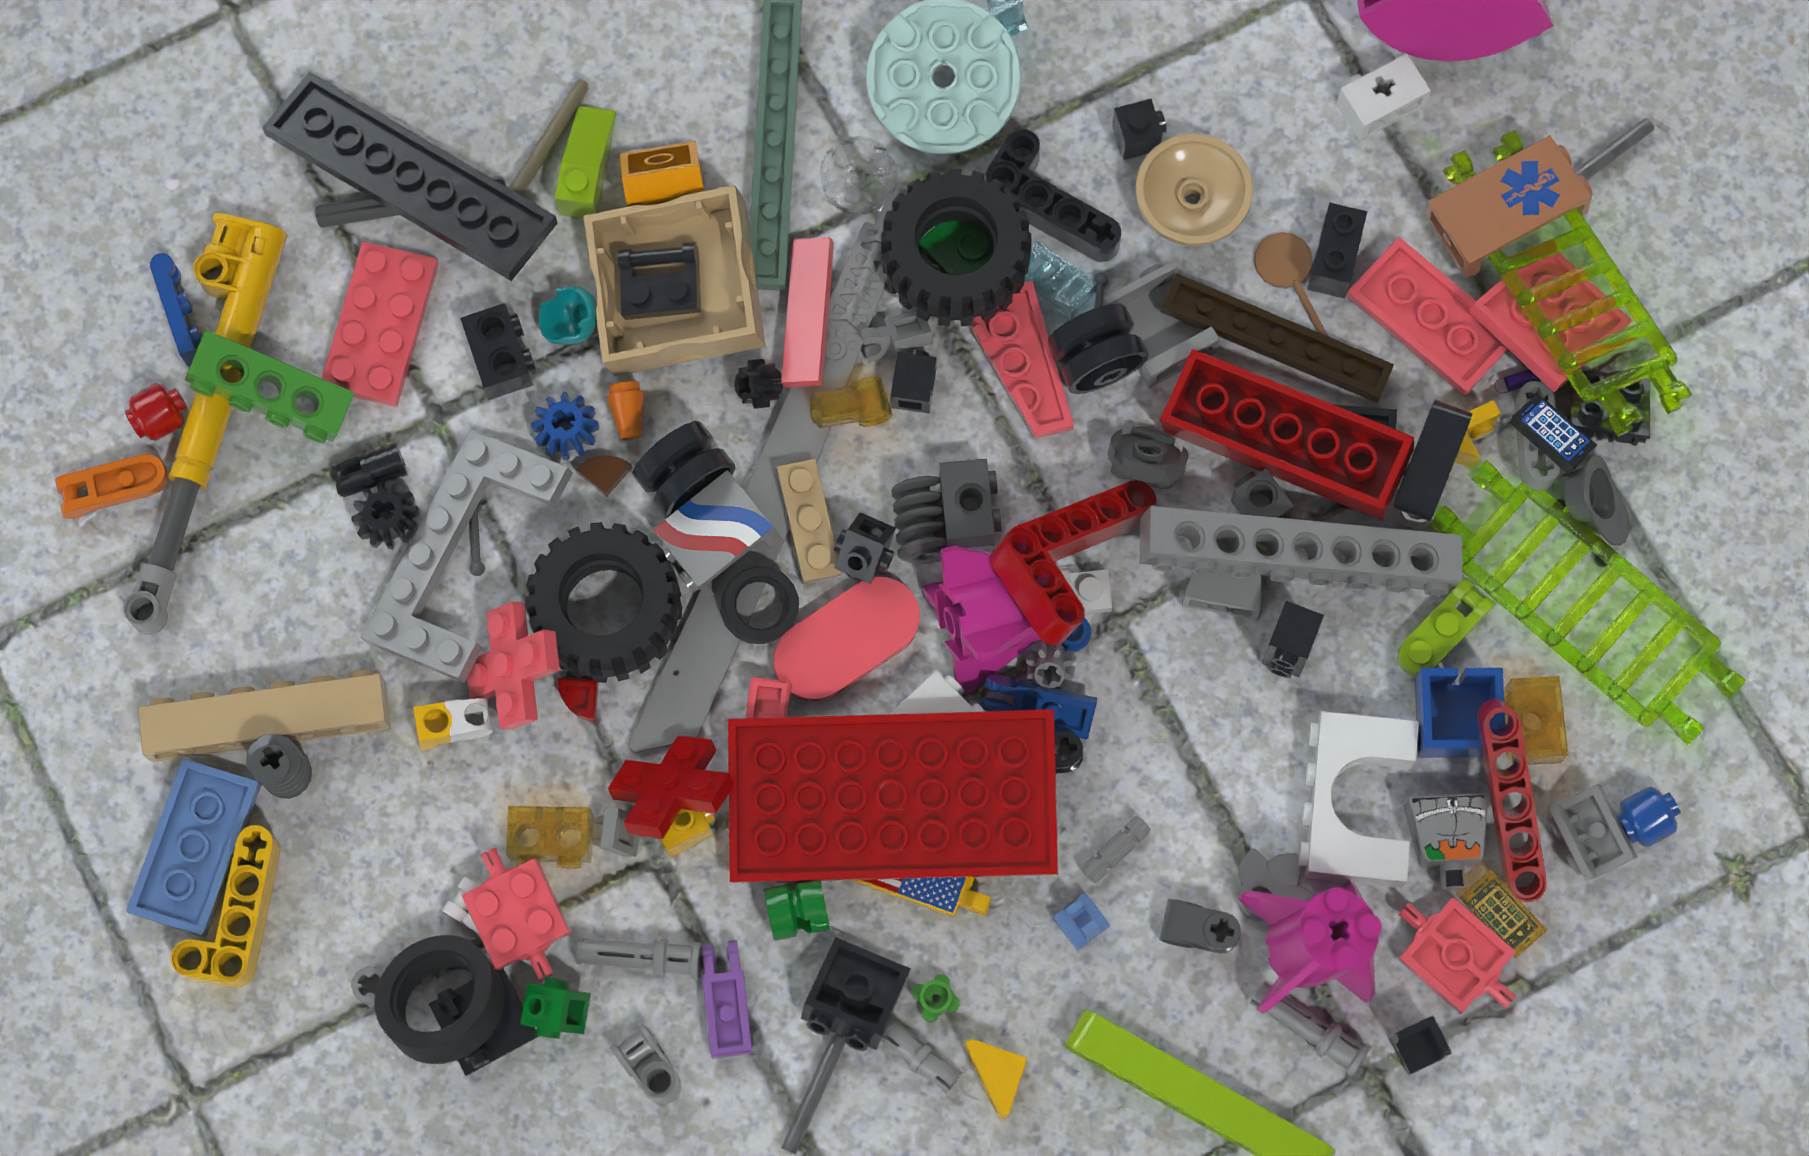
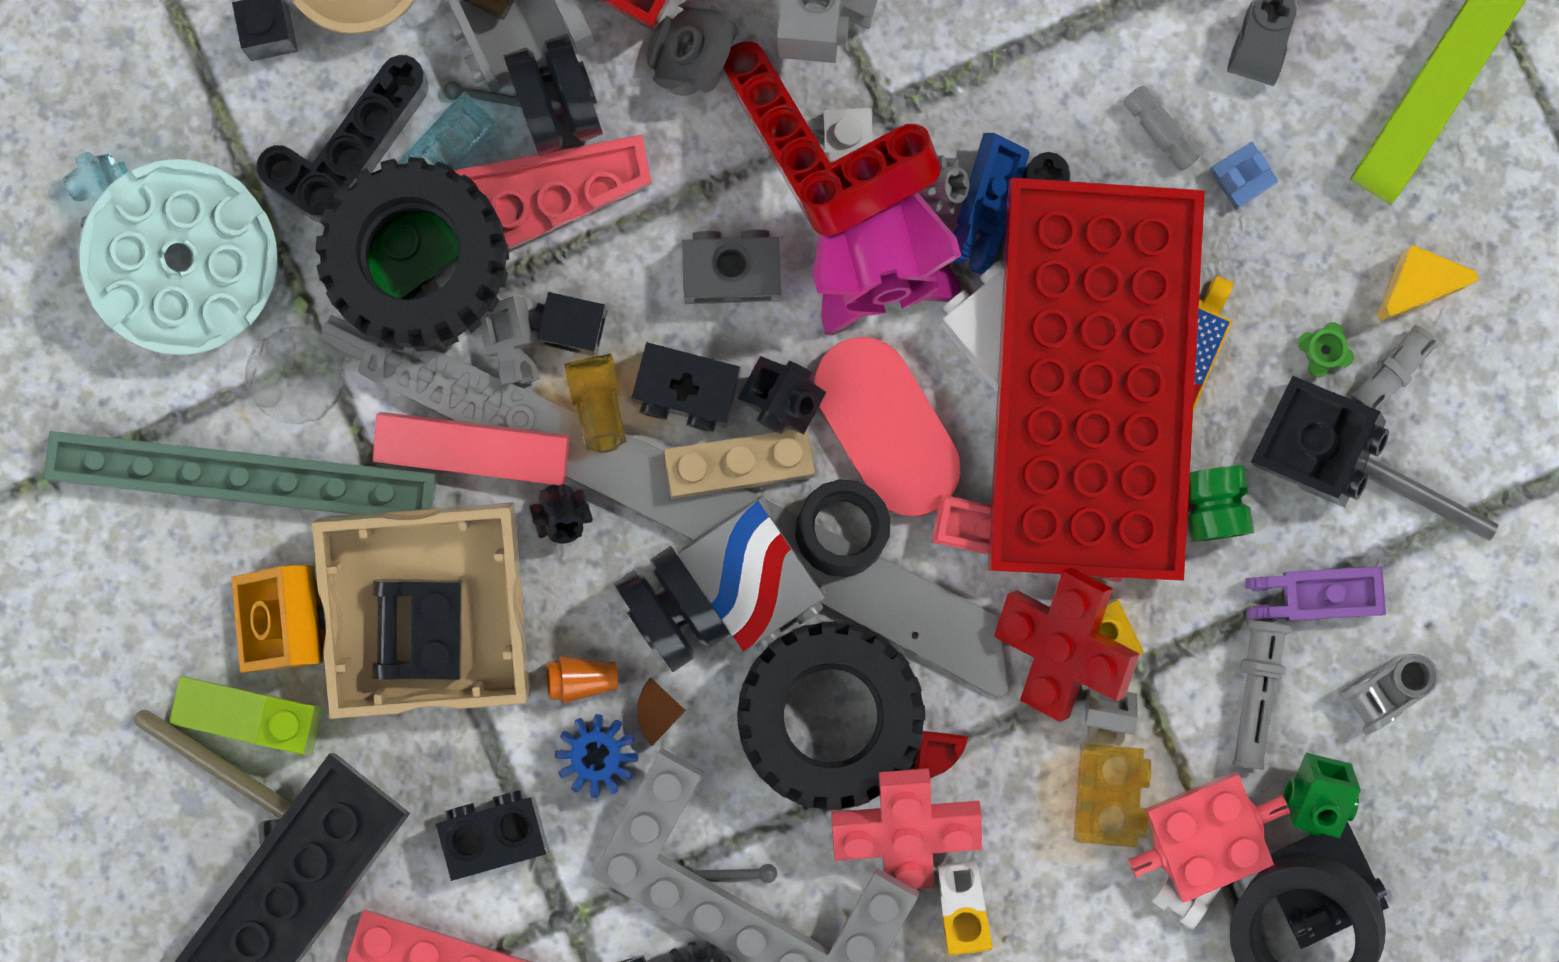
camera: 90 degrees left, 10 degrees up
(568, 316) = (456, 745): teal hair -> none
(871, 451) = (666, 366): none -> black brick
(916, 520) = (748, 328): dark grey piece -> none

